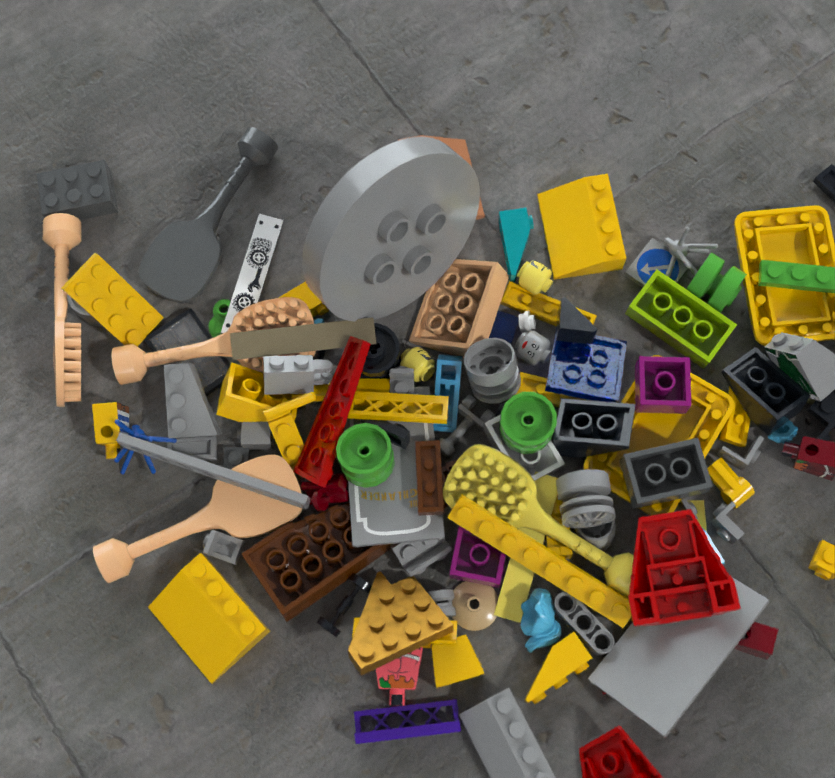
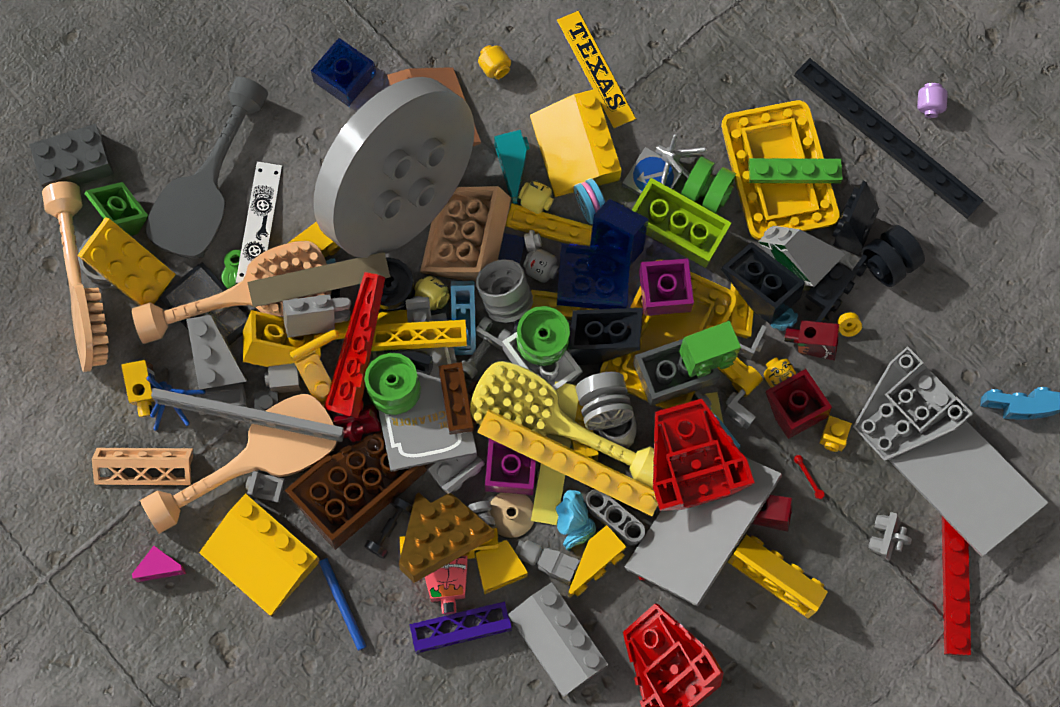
camera: 15 degrees left, 0 degrees up
(102, 615) = (157, 566): none -> dark pink slope
(106, 502) = (142, 458): none -> light nougat fence
(114, 244) = (119, 205): none -> bright green slope
(287, 681) = (342, 604): none -> blue bar
(355, 132) = (343, 72): none -> clear blue brick
(507, 137) = (494, 62): none -> yellow head
(507, 661) = (549, 561): none -> light grey piece
(573, 325) = (577, 240): black slope -> none
(591, 287) = (589, 198): none -> medium azure head
(609, 155) = (596, 69): none -> yellow sticker
(619, 322) = (618, 232): none -> clear blue brick
(706, 458) = (710, 349): none -> bright green brick
(756, 713) = (778, 577): none -> yellow slope
(774, 490) = (778, 371): none -> yellow head
(791, 523) = (798, 403): none -> dark red slope
(803, 623) = (819, 494): none -> red hinge

